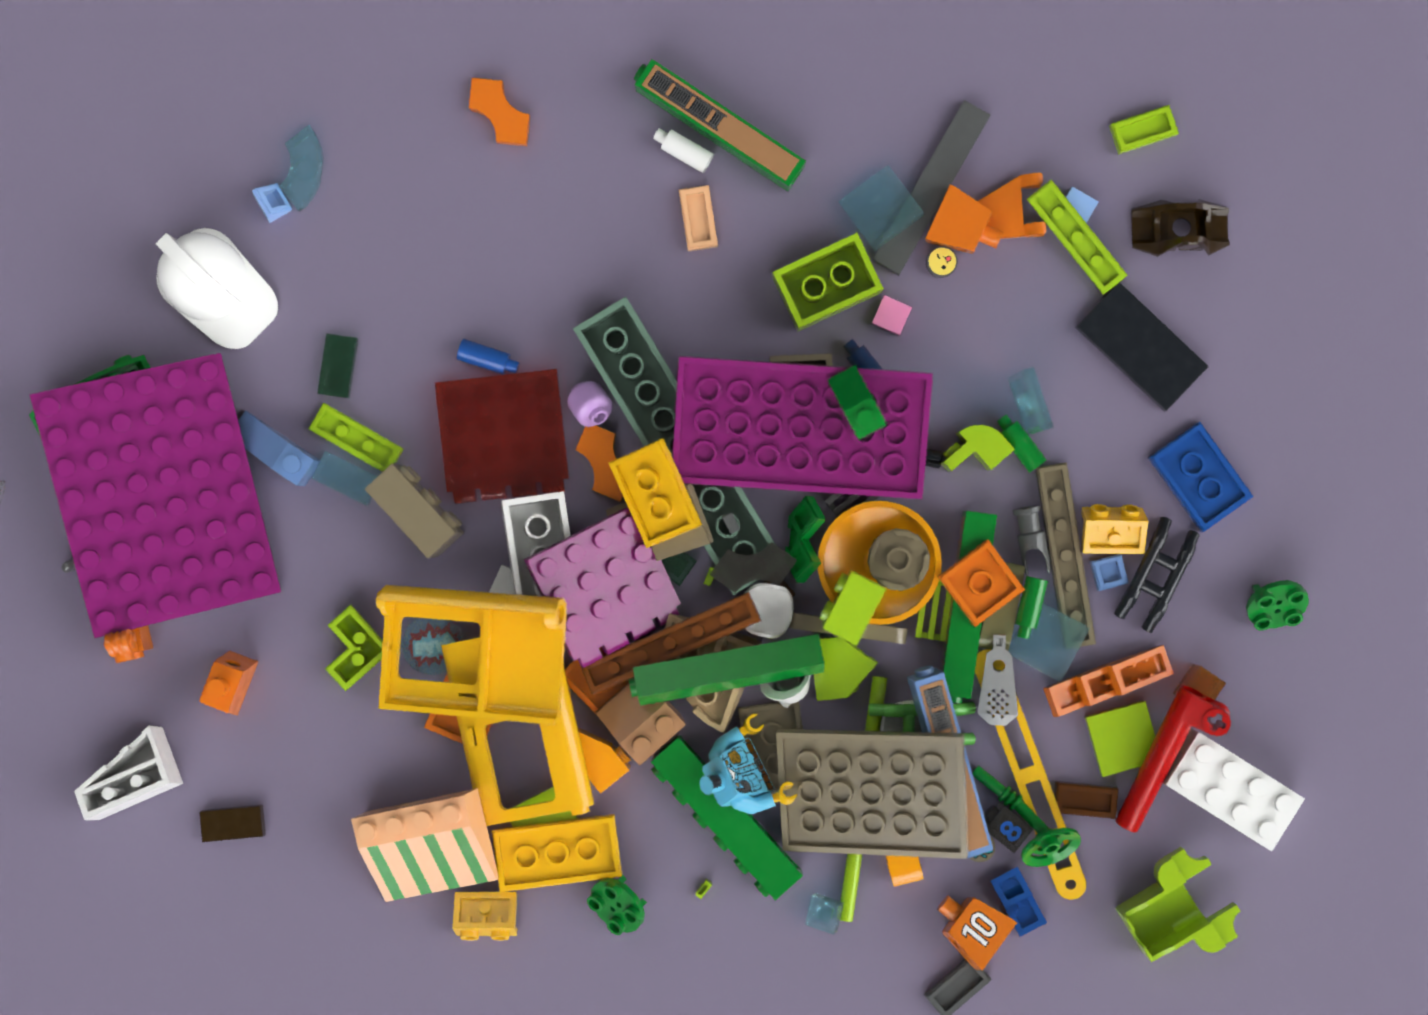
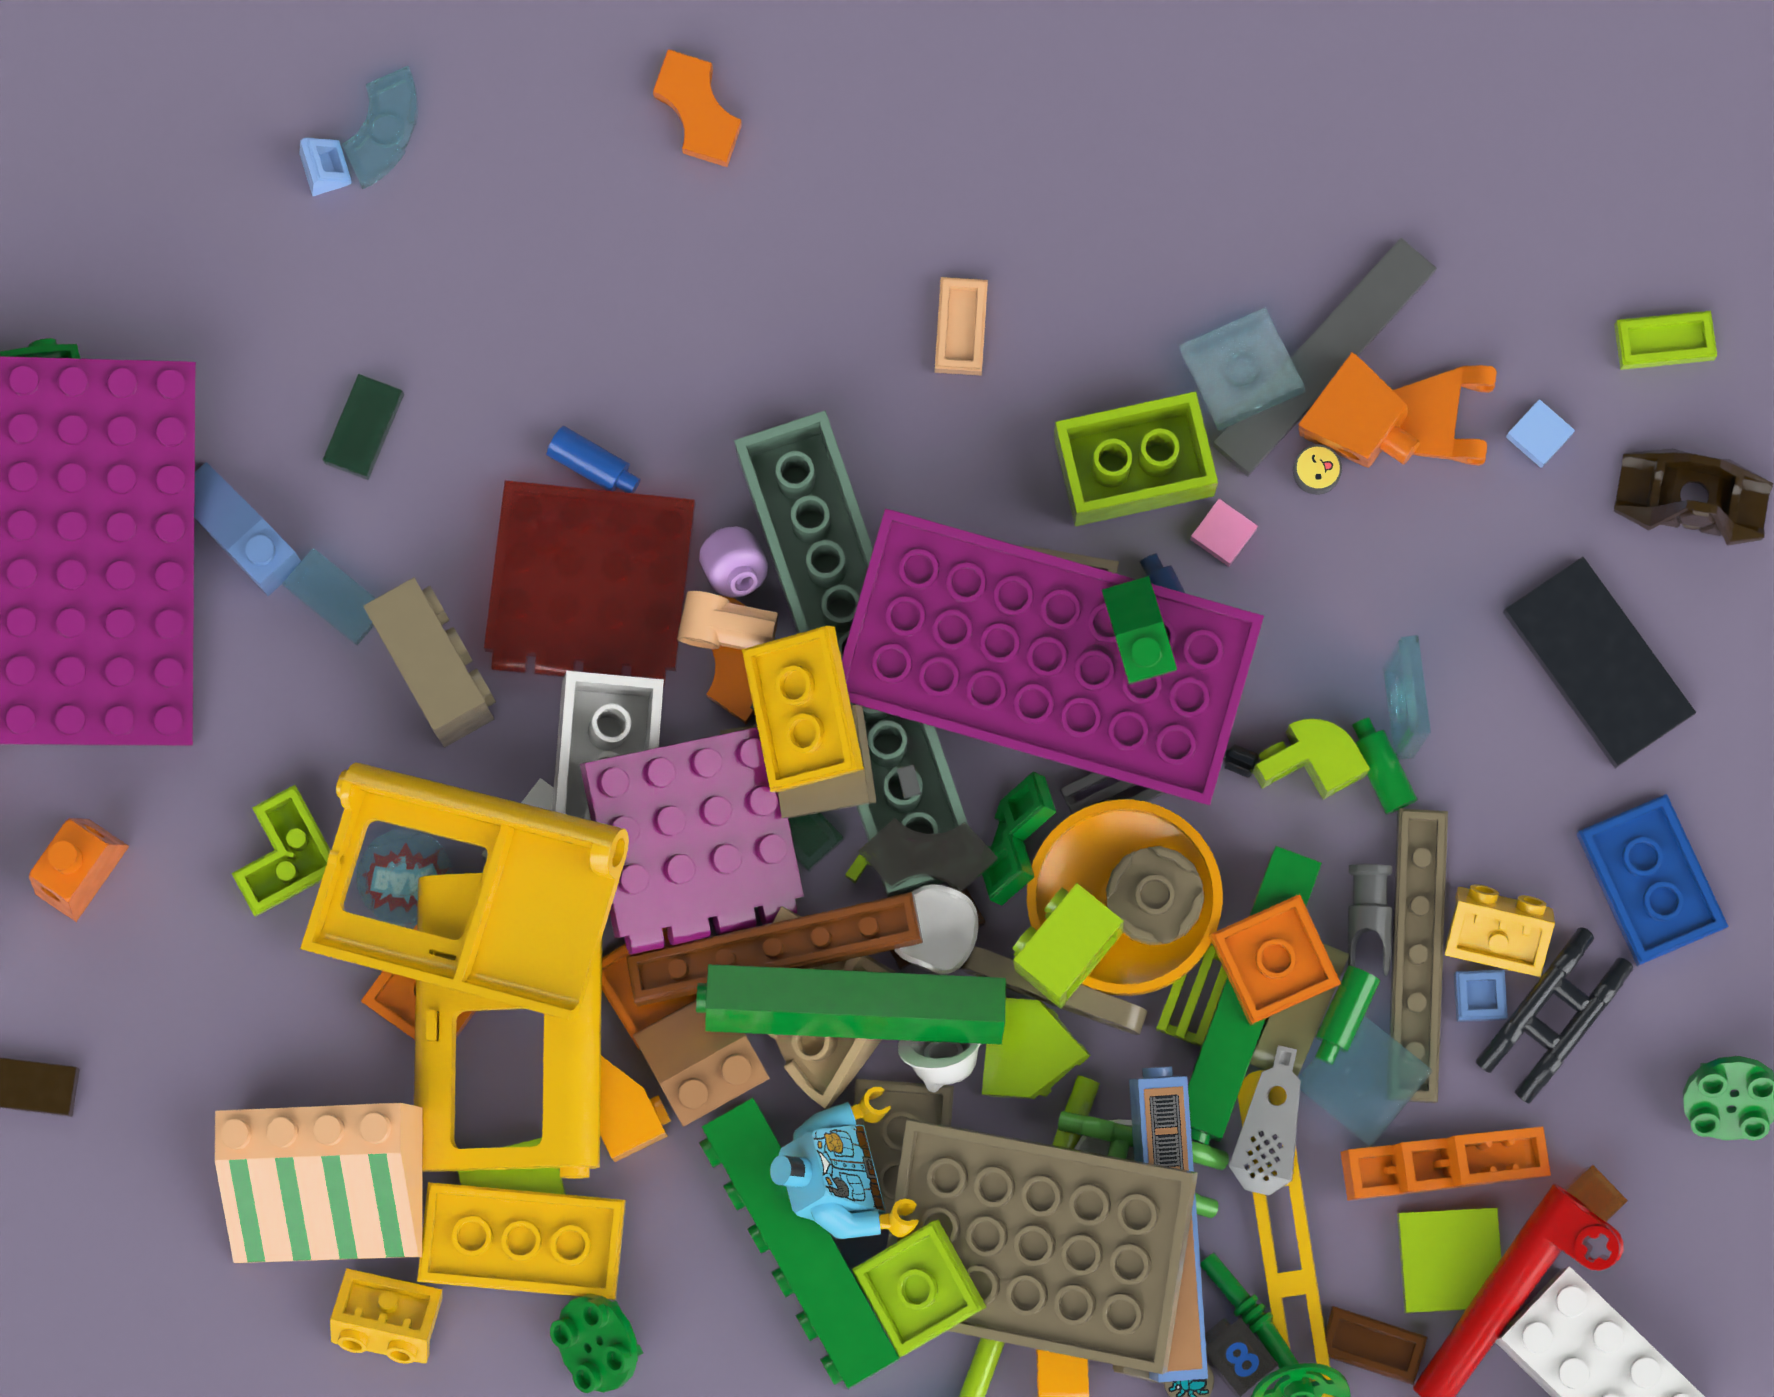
camera: 10 degrees right, 10 degrees down
(215, 287) = (208, 271): white piece -> none
(355, 438) = (361, 537): lime tile -> none
(590, 445) = (714, 622): none -> light nougat piece
(684, 149) = (962, 220): white cylinder -> none
(703, 888) = (738, 1353): lime piece -> none
(719, 124) = (1023, 195): brick -> none
(805, 832) = (919, 1288): none -> lime tile
(1077, 237) = (1531, 475): lime tile -> none

